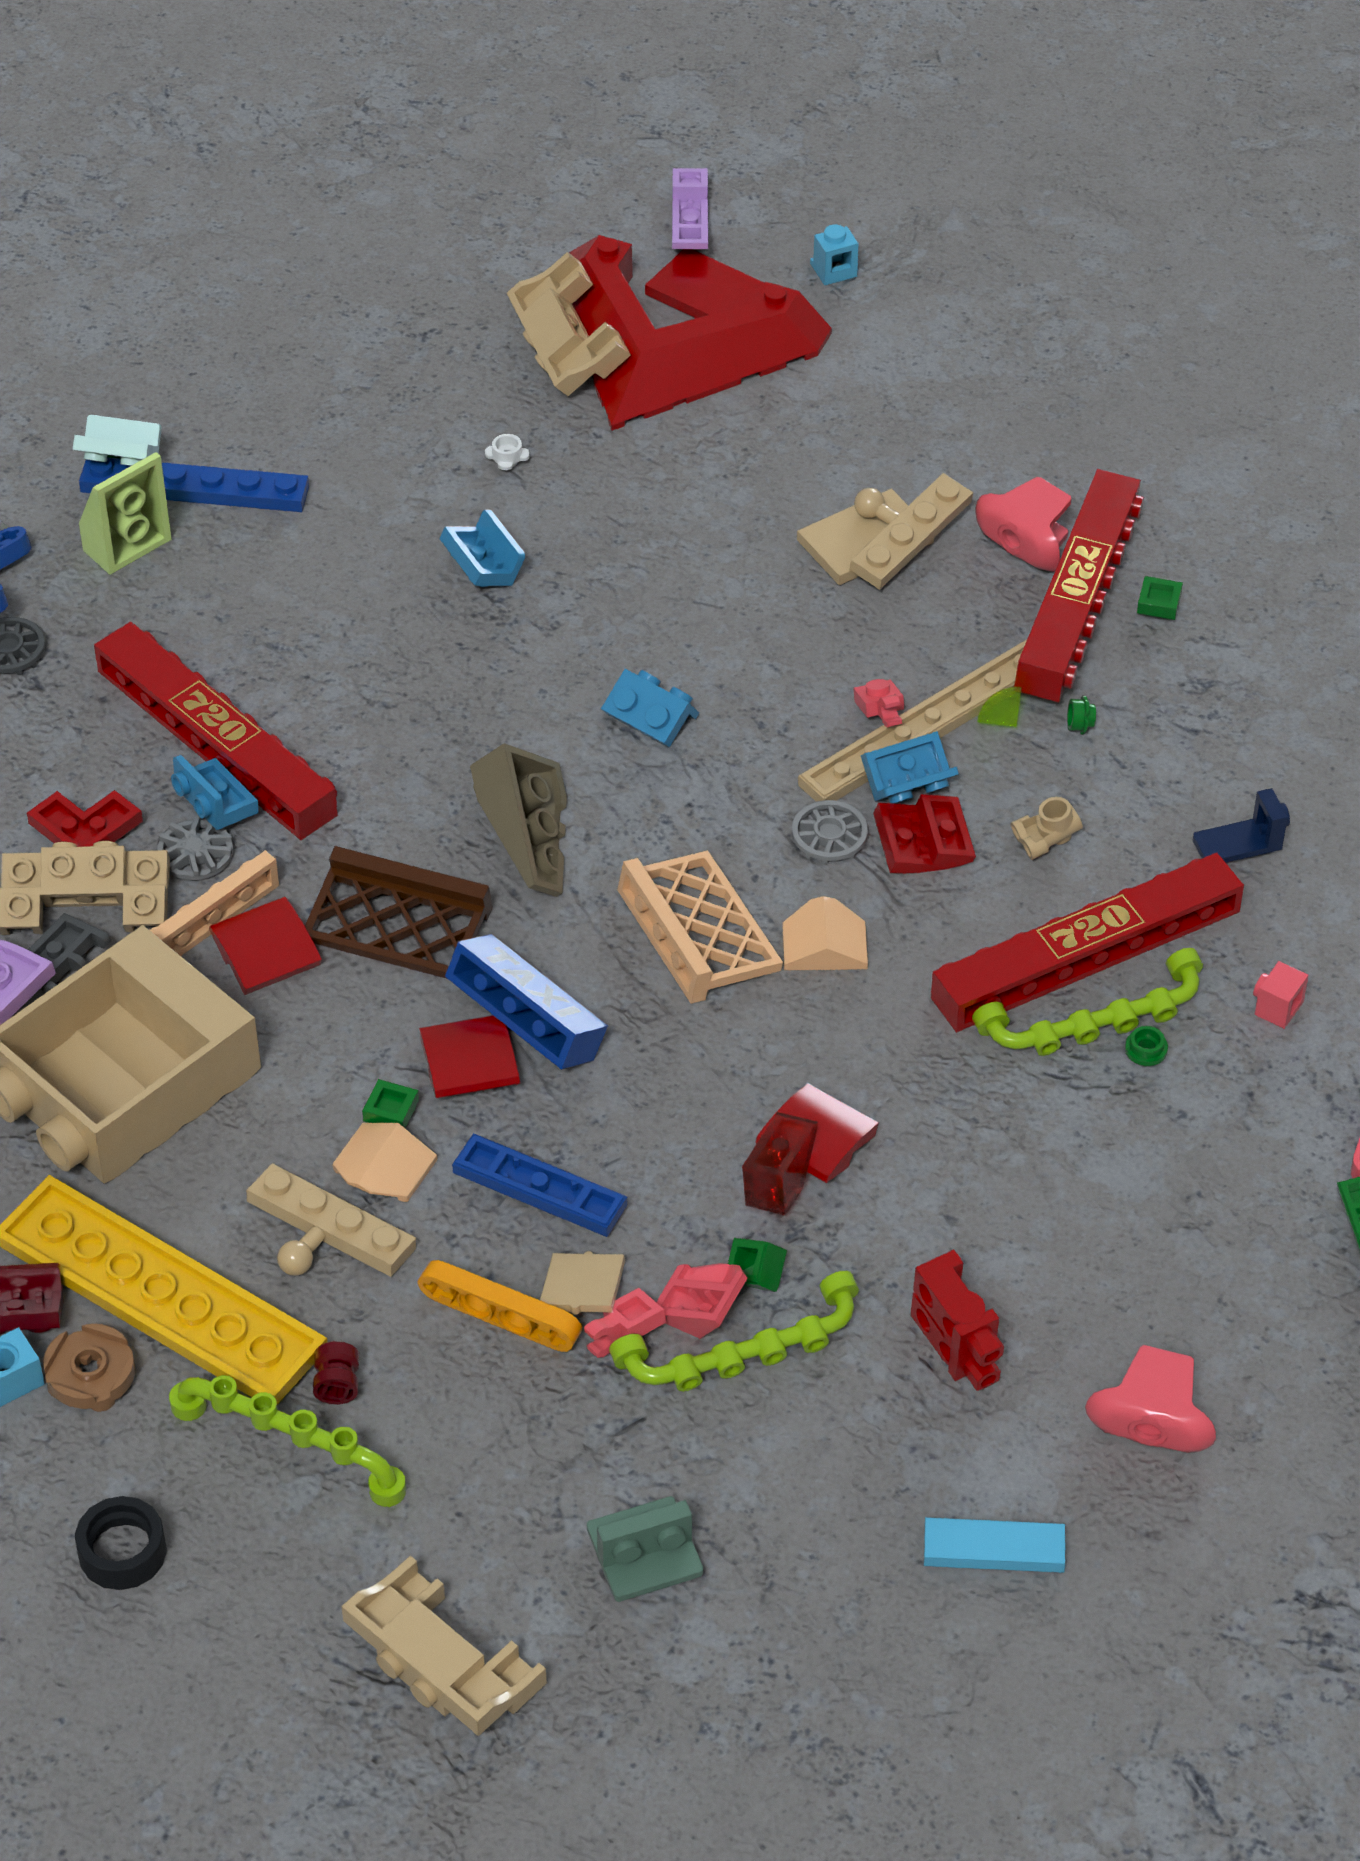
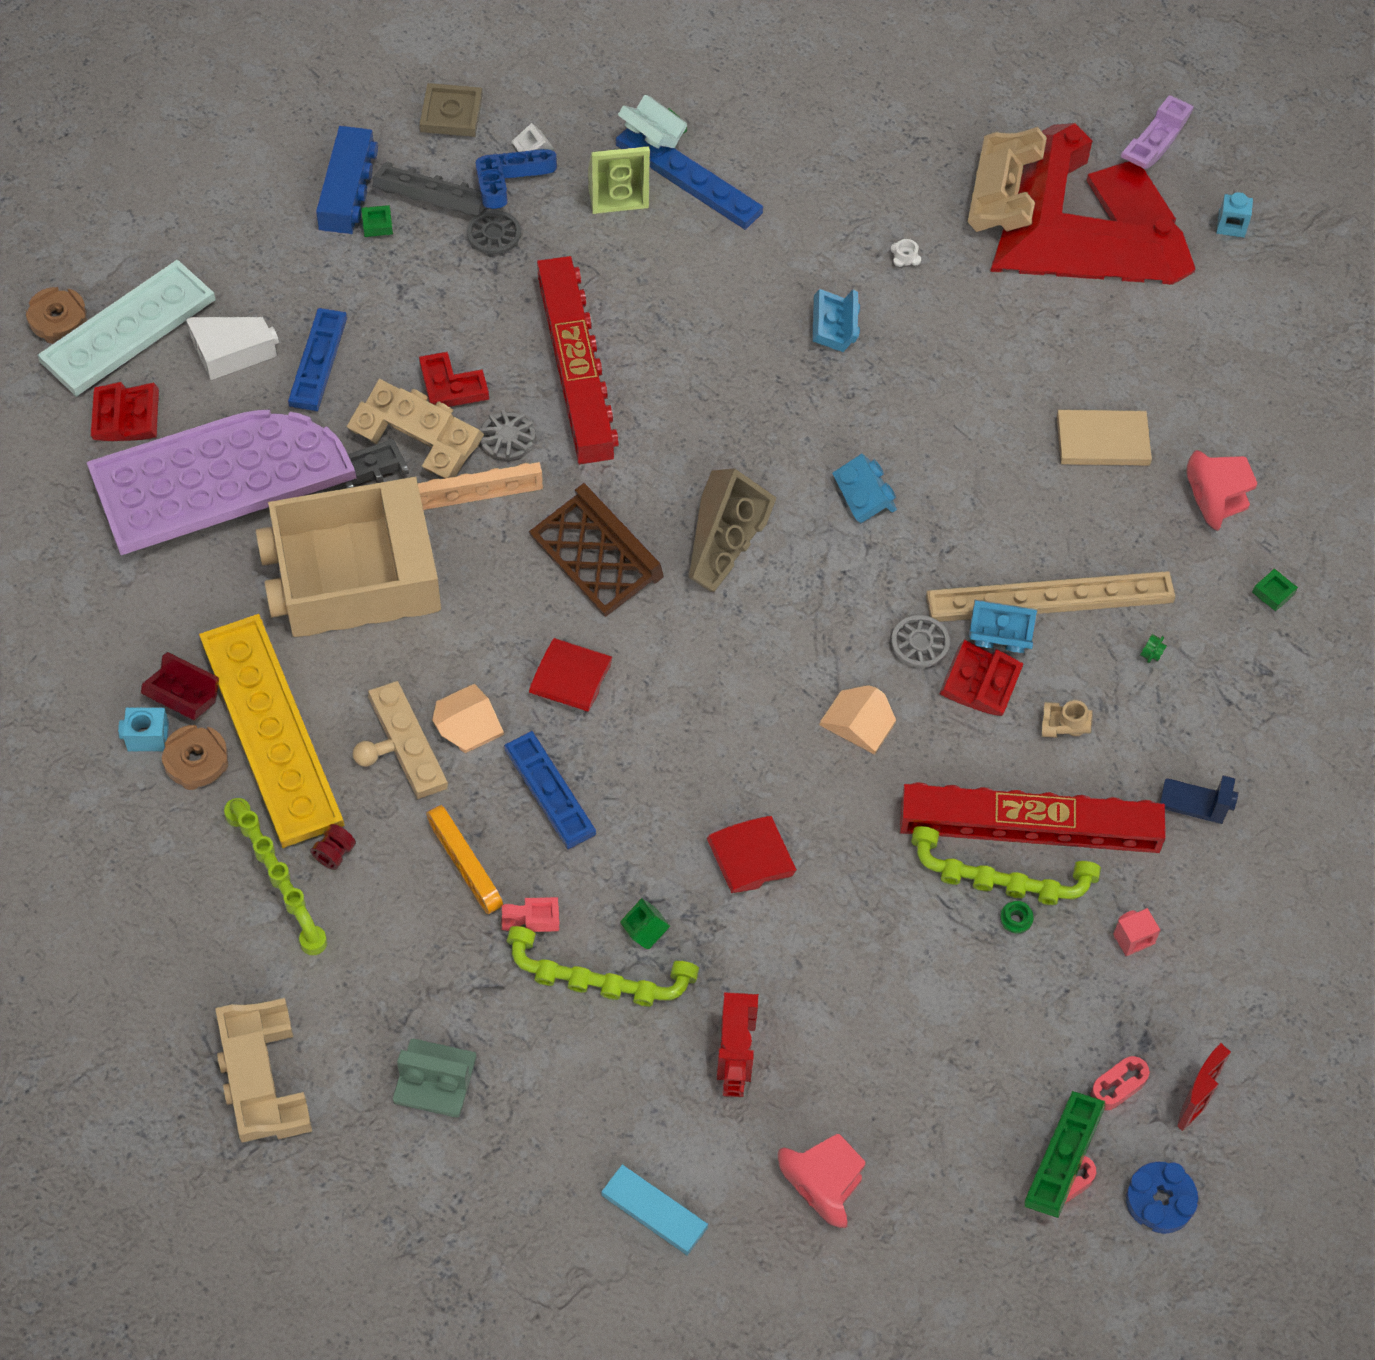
camera: 30 degrees right, 10 degrees up
(113, 1513) = (121, 863): black tyre -> none
(213, 792) = (542, 403): dark azure bracket -> none
(265, 945) = (500, 527): red slope -> none
(390, 1104) = (497, 682): green plate -> none
(526, 1001) = (629, 657): blue brick -> none
(583, 1281) = (526, 873): tan piece -> none
(670, 930) = (758, 660): light nougat fence -> none
(700, 1296) = (592, 924): coral slope -> none
(779, 1163) = (705, 863): clear red slope -> none
(881, 699) = (1022, 564): coral plate -> none
(907, 531) = (1132, 449): tan plate -> none
(1002, 707) = (1101, 614): clear neon green tile -> none
(1078, 586) = (1219, 552): red brick -> none

